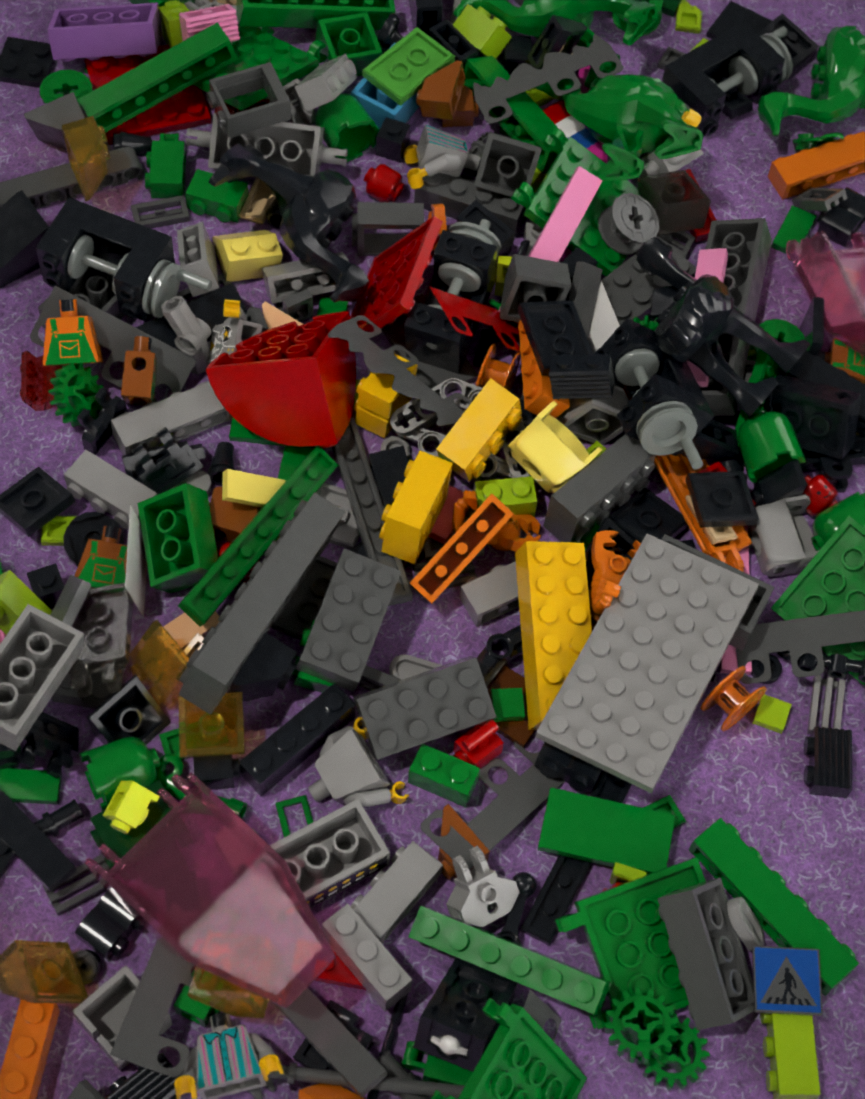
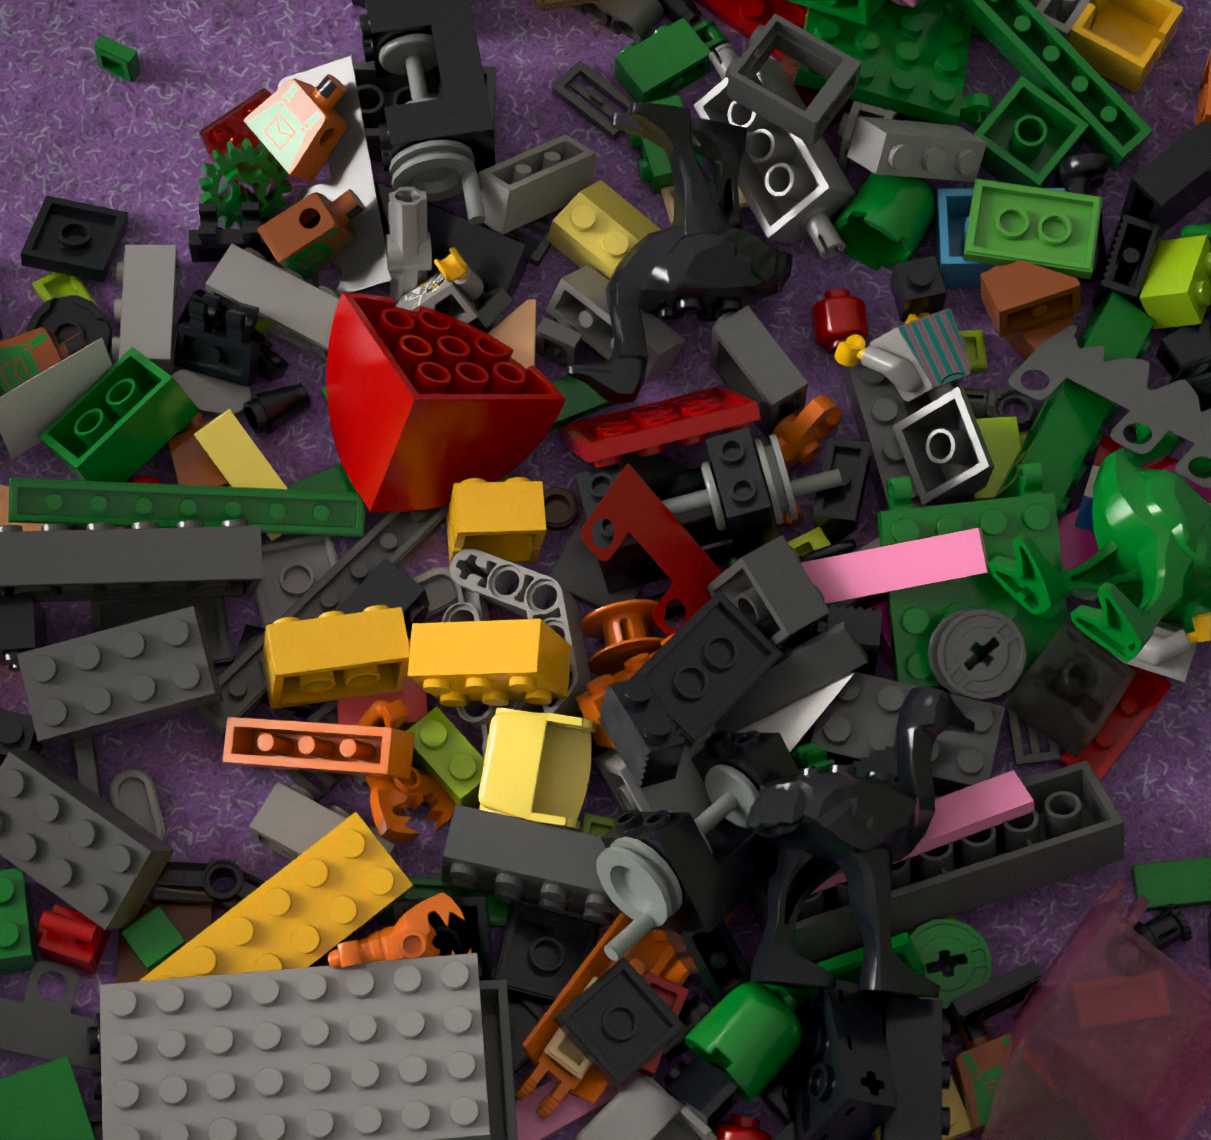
camera: 60 degrees right, 5 degrees up
(386, 362) = (506, 490): dark grey piece -> none

